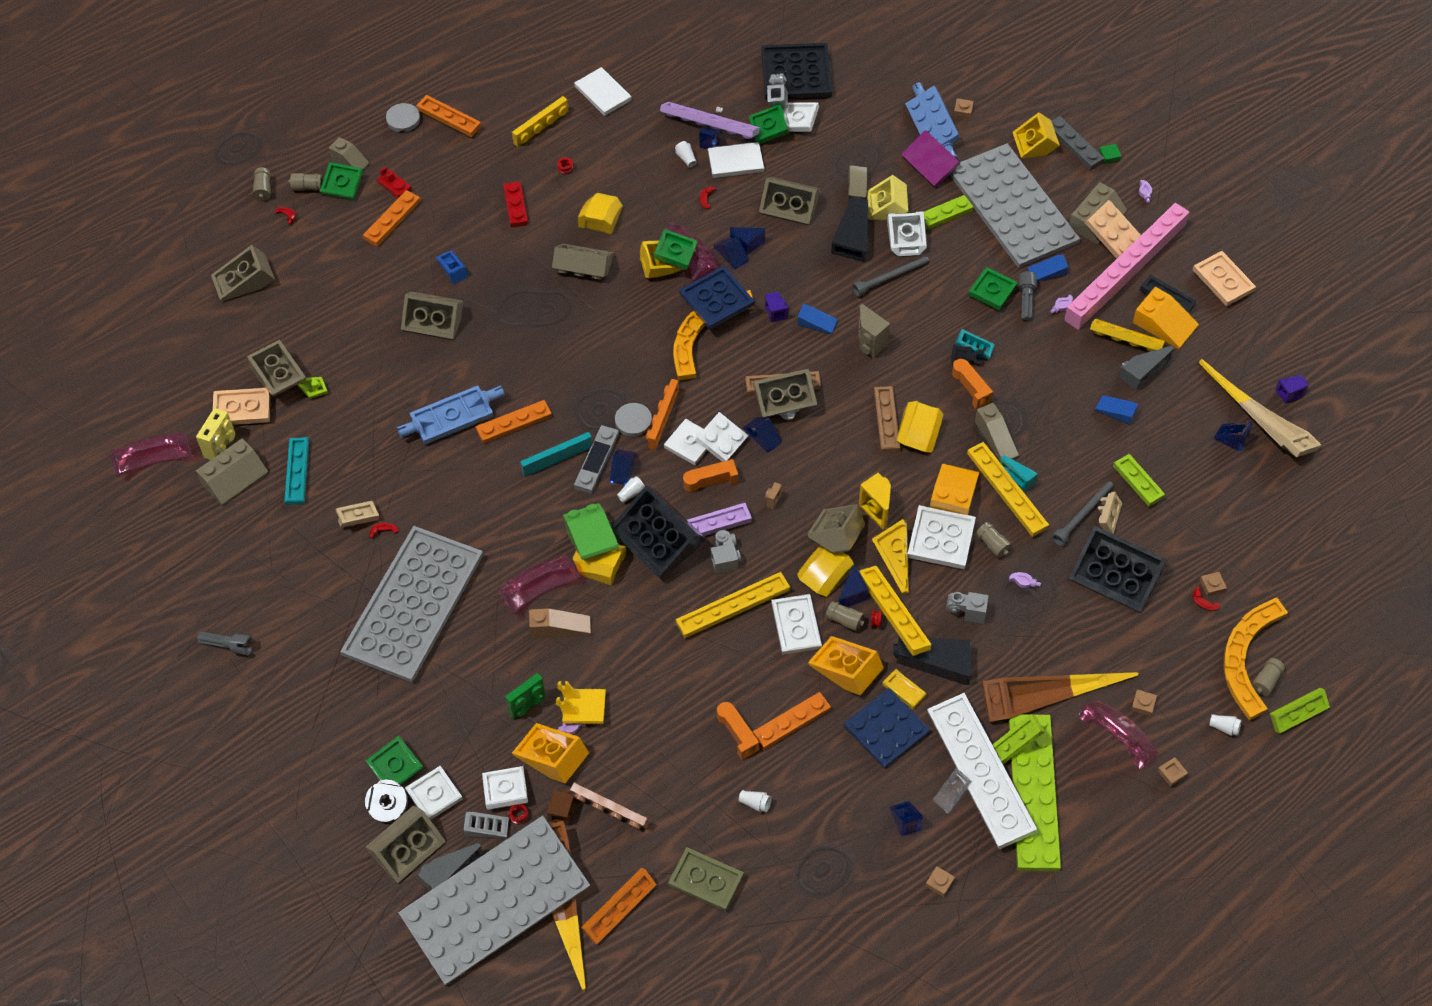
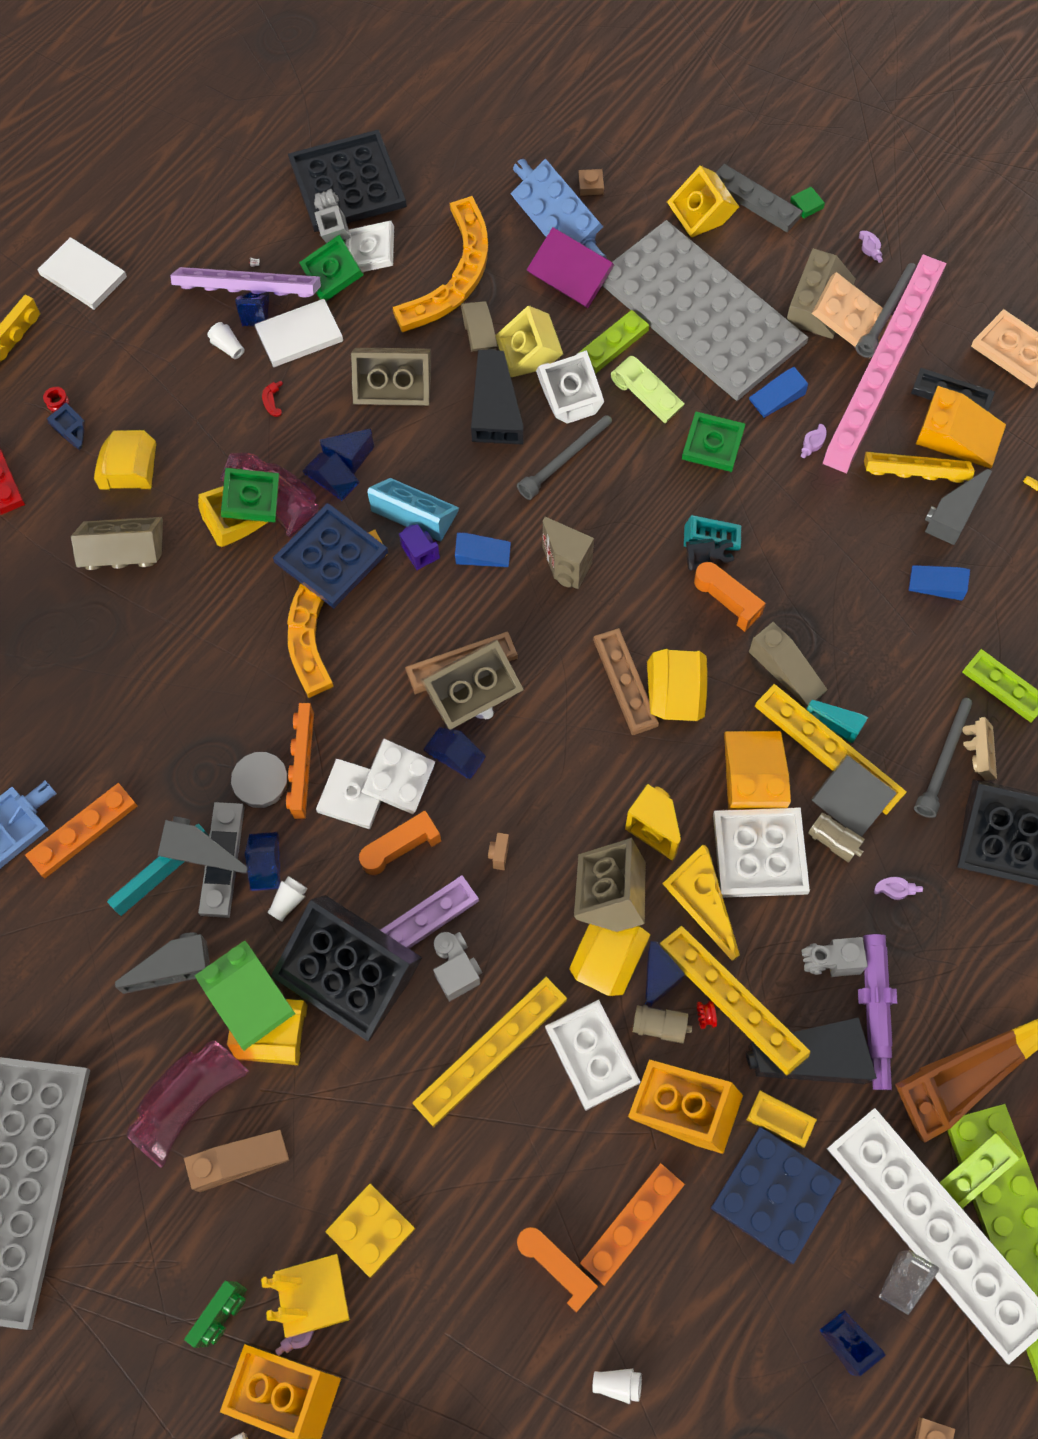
camera: 15 degrees left, 10 degrees up
(545, 508) = (170, 964): none -> dark grey slope
(569, 183) = (68, 424): none -> dark blue slope
(580, 440) = (191, 845): none -> dark grey slope
(629, 683) = (370, 1230): none -> yellow plate
(775, 280) = (411, 507): none -> medium azure slope
(856, 151) = (464, 278): none -> light orange plate
(959, 246) = (647, 388): none -> yellowish green plate
(987, 637) = (878, 998): none -> medium lavender piece
(1012, 517) = (853, 795): none -> dark grey slope
(1027, 286) = (760, 425): dark grey piece -> none
(1117, 249) = (868, 343): none -> dark grey piece

